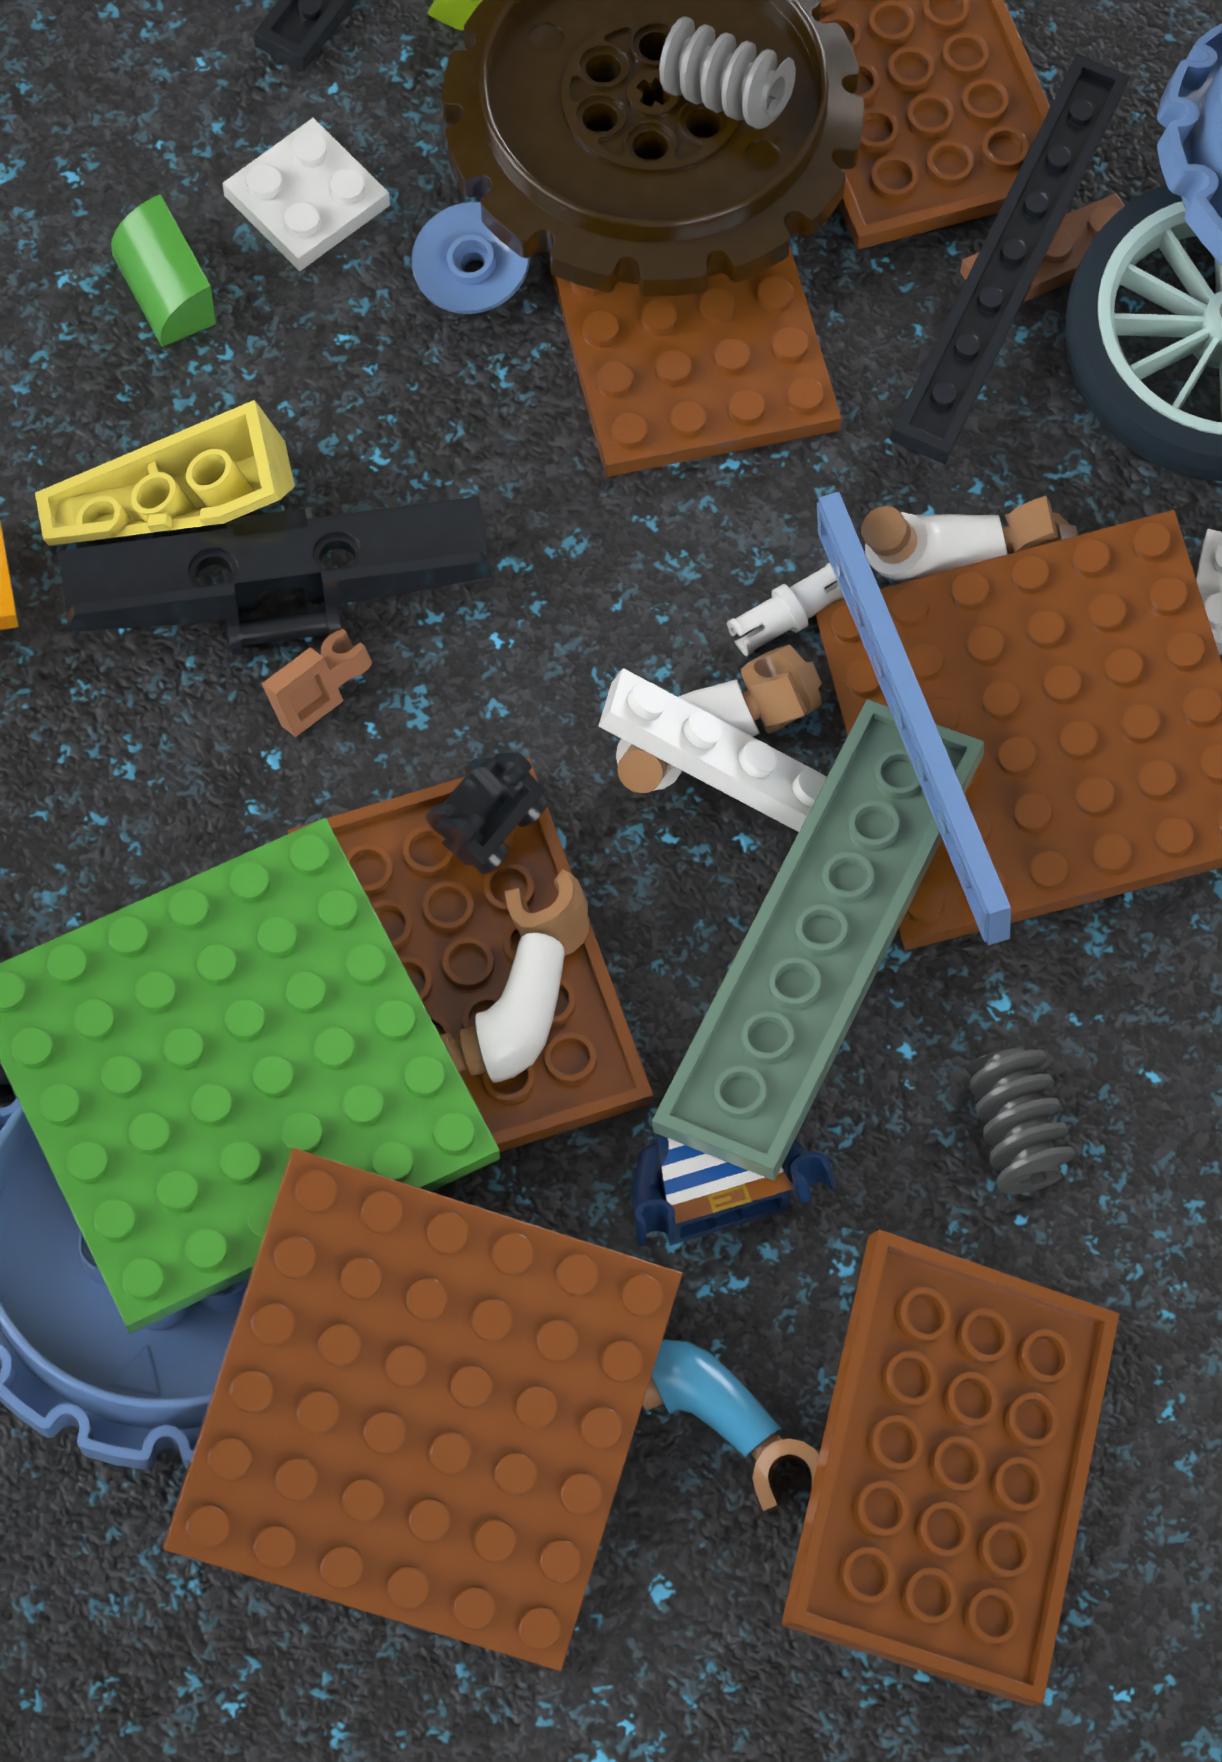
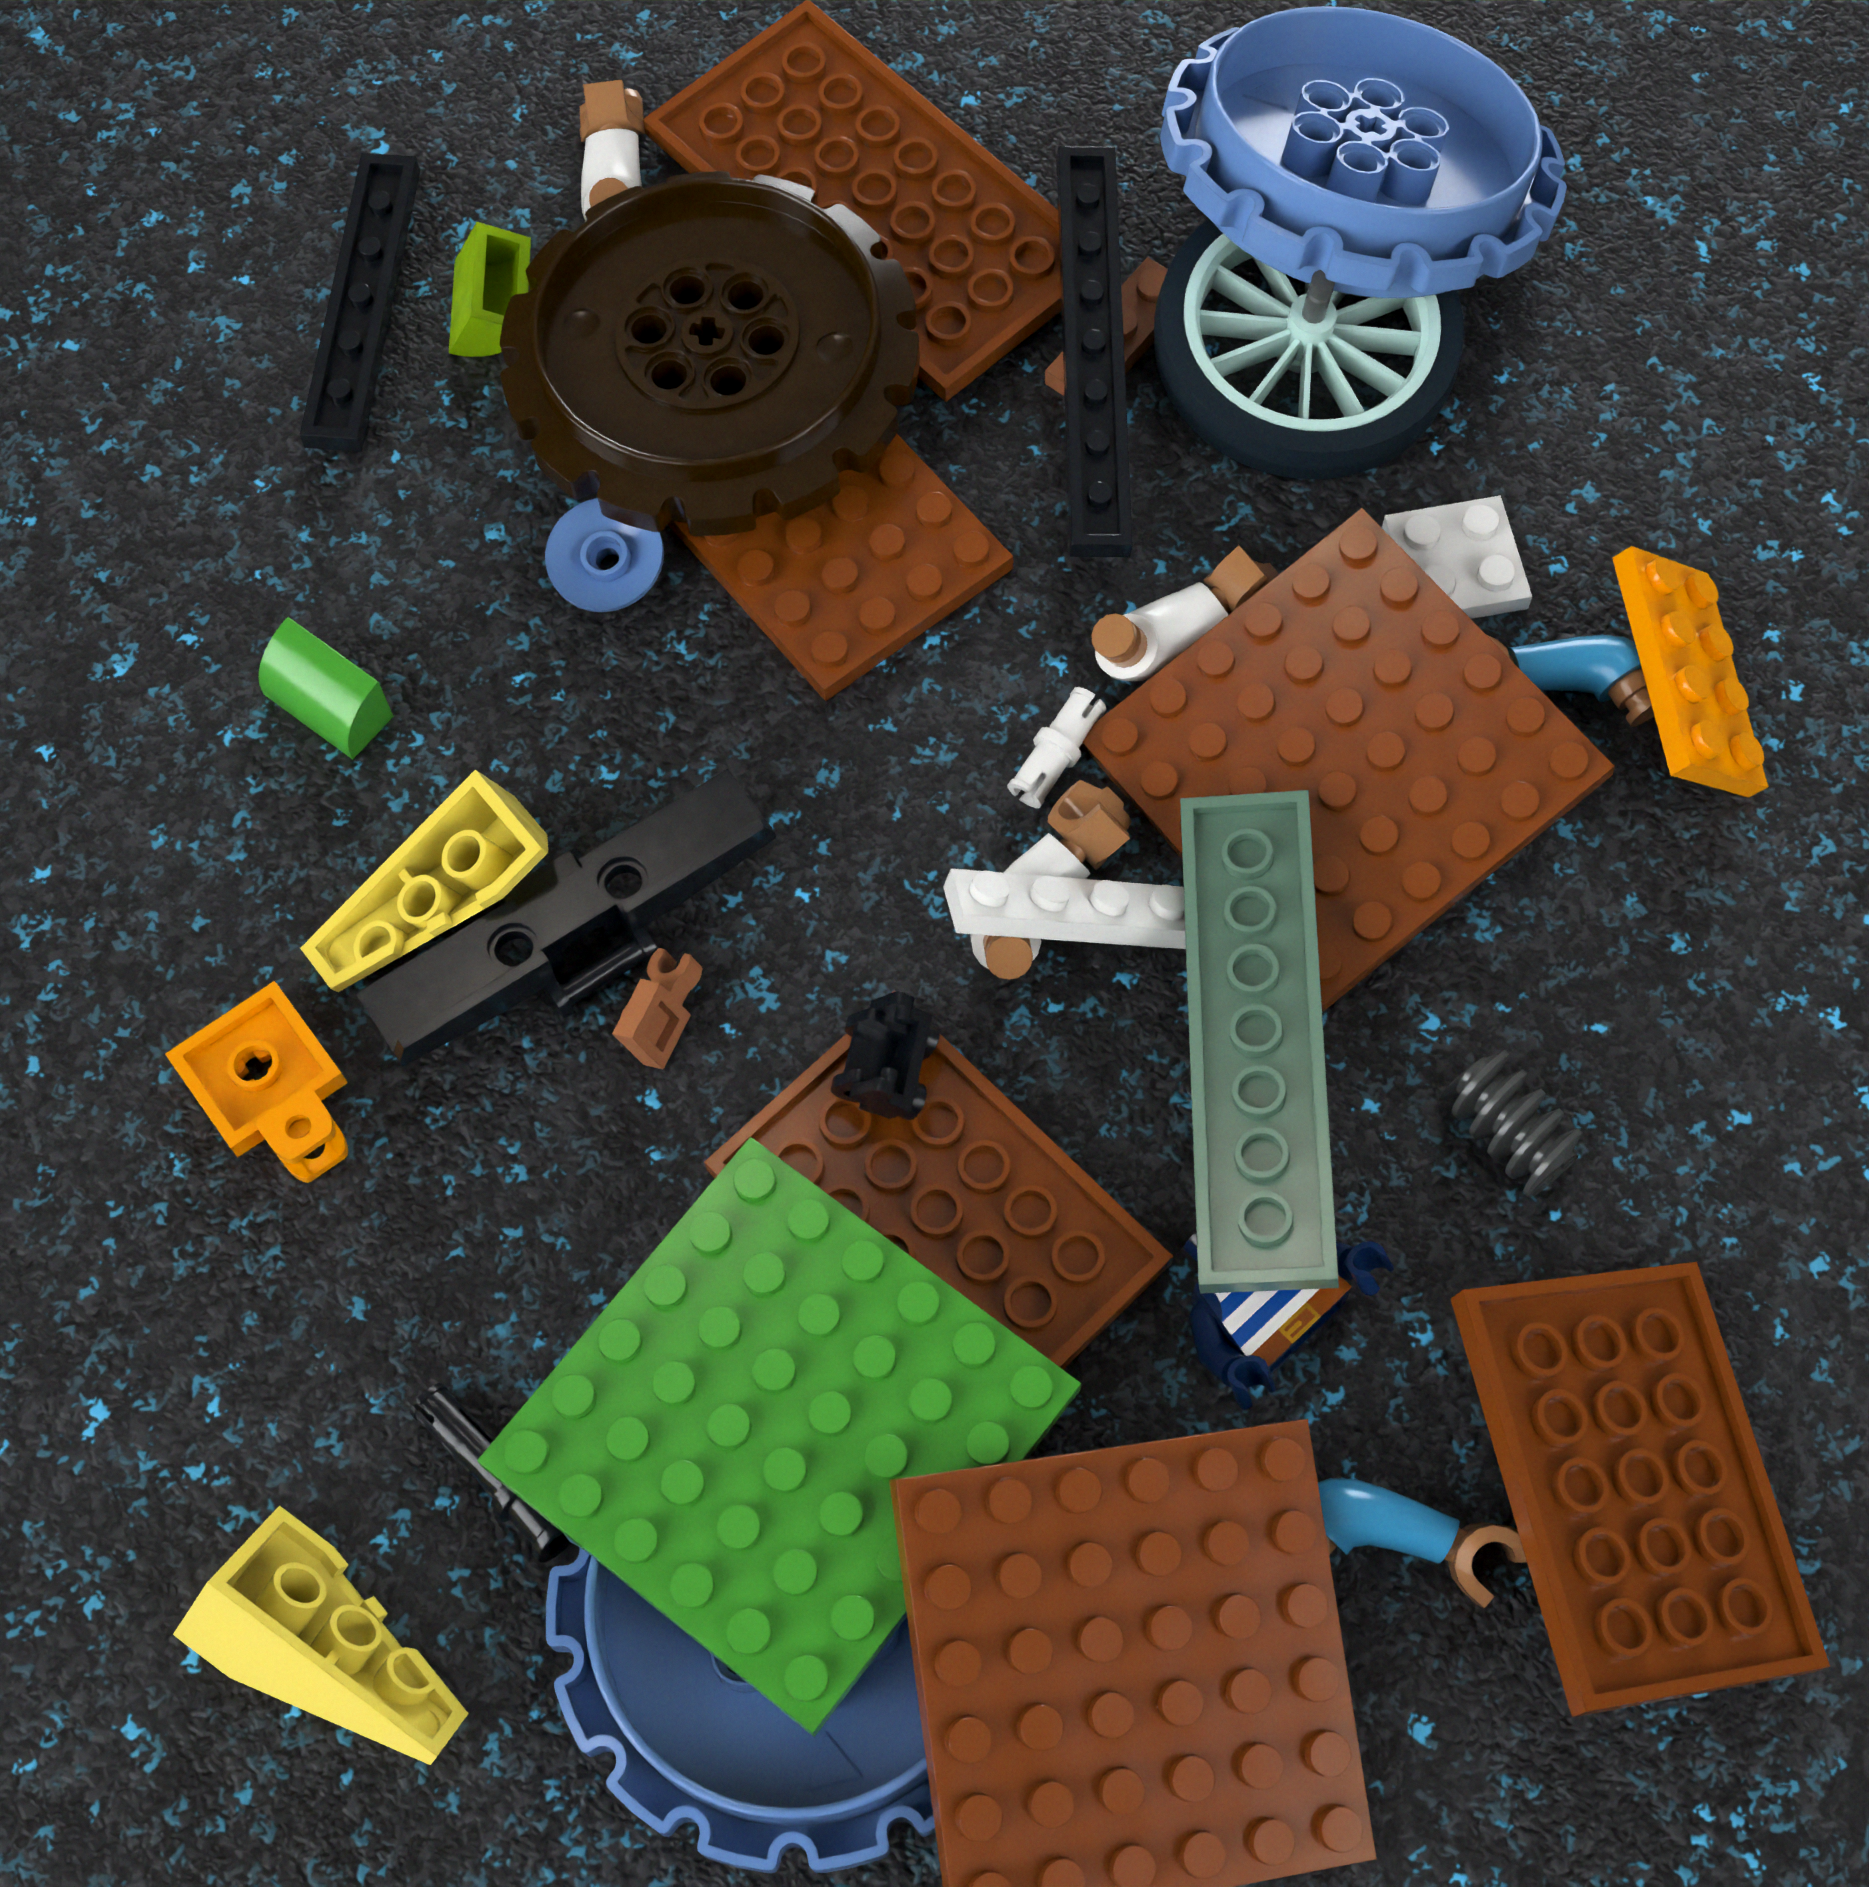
camera: 20 degrees left, 0 degrees up
(306, 194) = (419, 561): white plate -> none
(519, 1023) = (1021, 1248): white piece -> none
(725, 76) = (771, 288): light grey piece -> none
(914, 721) = (1243, 800): medium blue tile -> none

